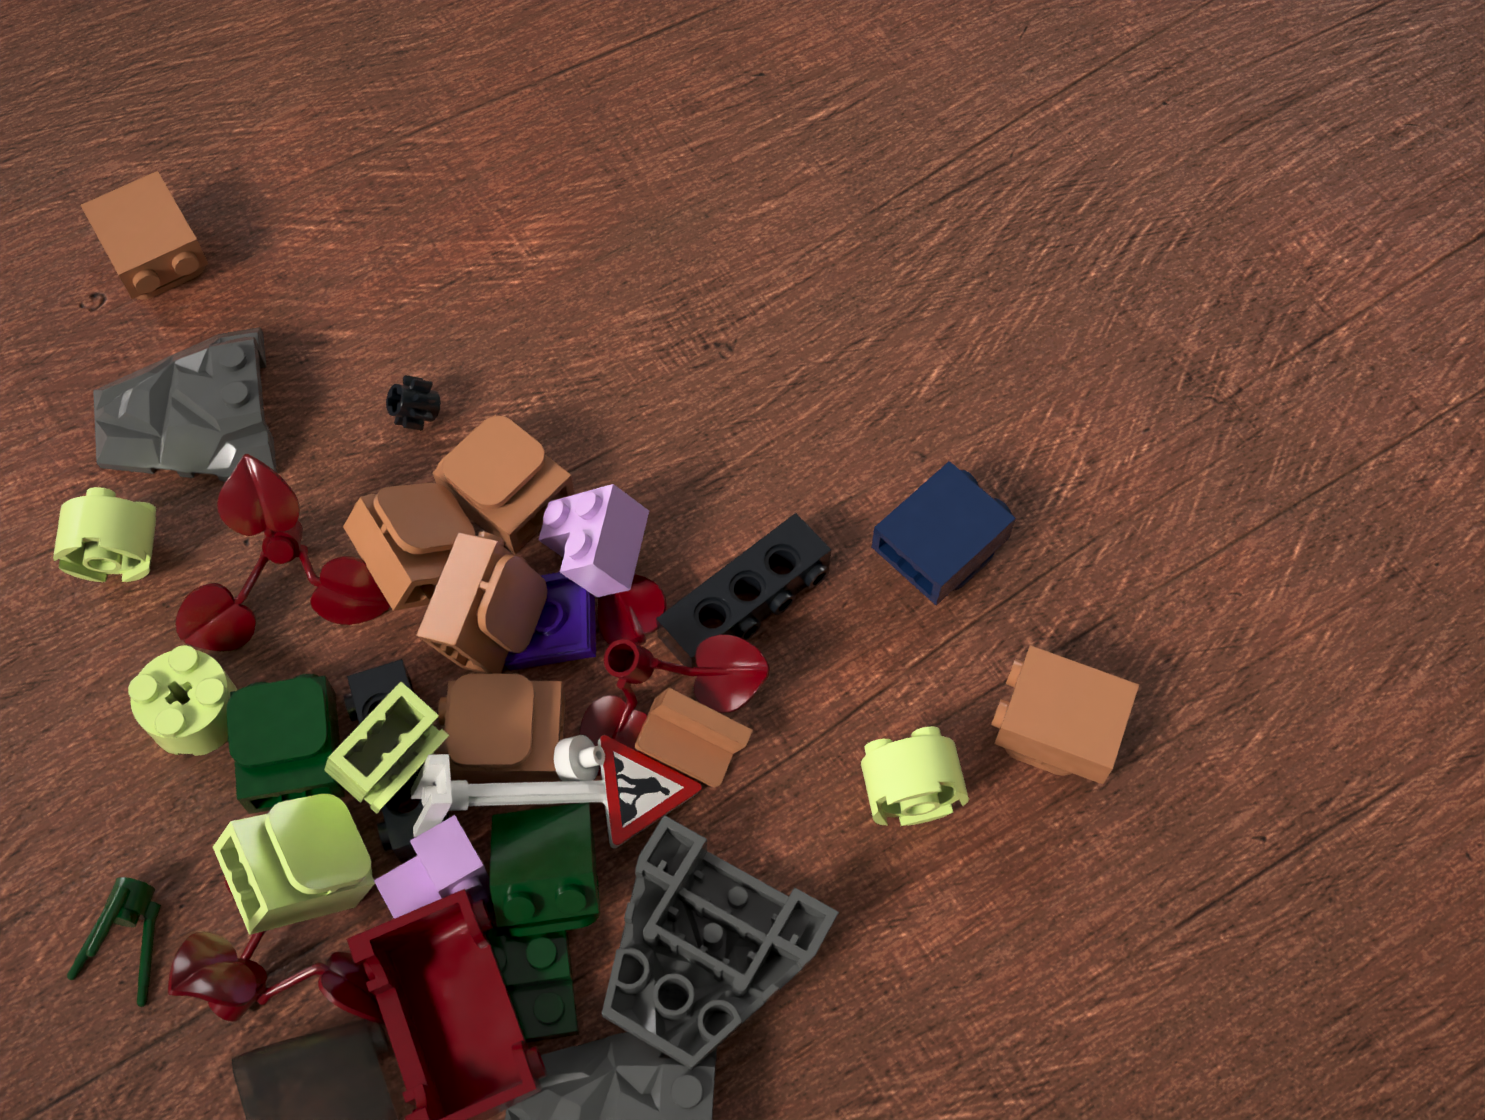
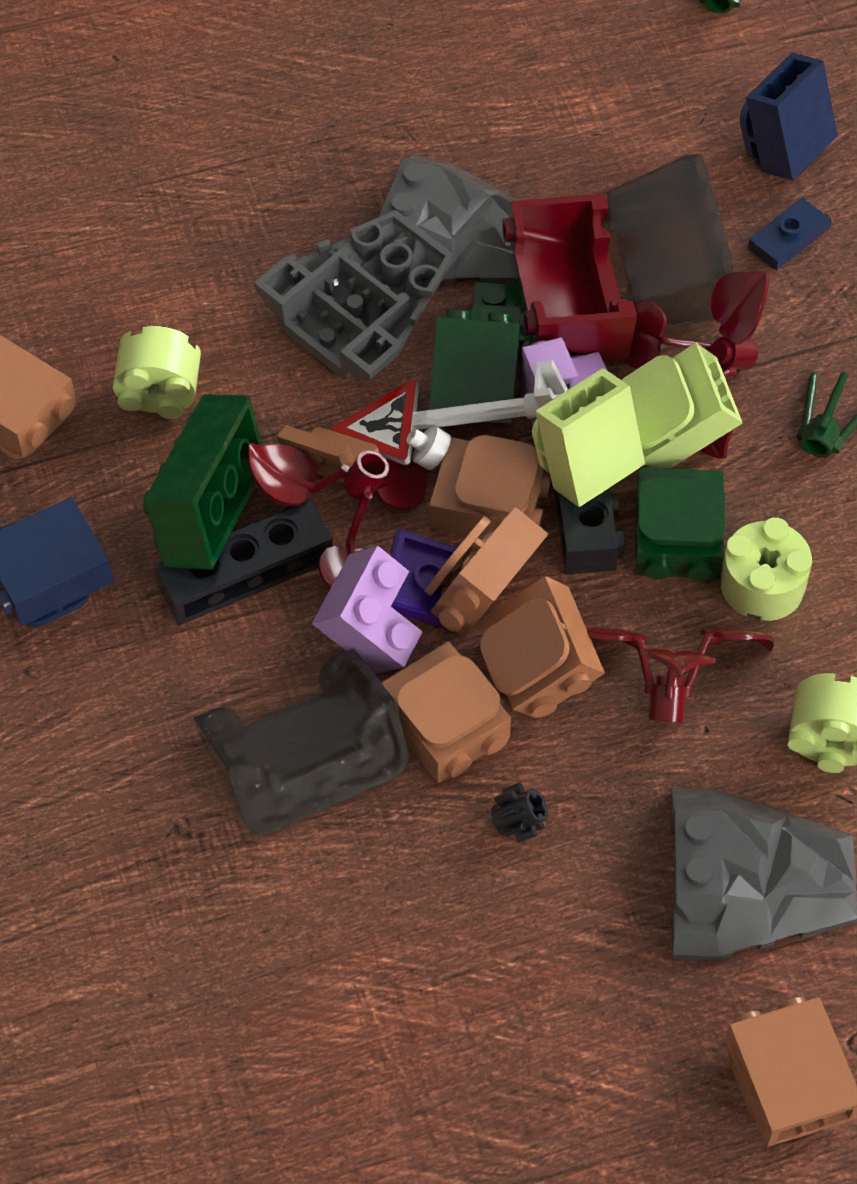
camera: 165 degrees left, 5 degrees down
(638, 418) = (309, 751): none -> clear smoke windscreen
(805, 626) = (203, 482): none -> dark green brick

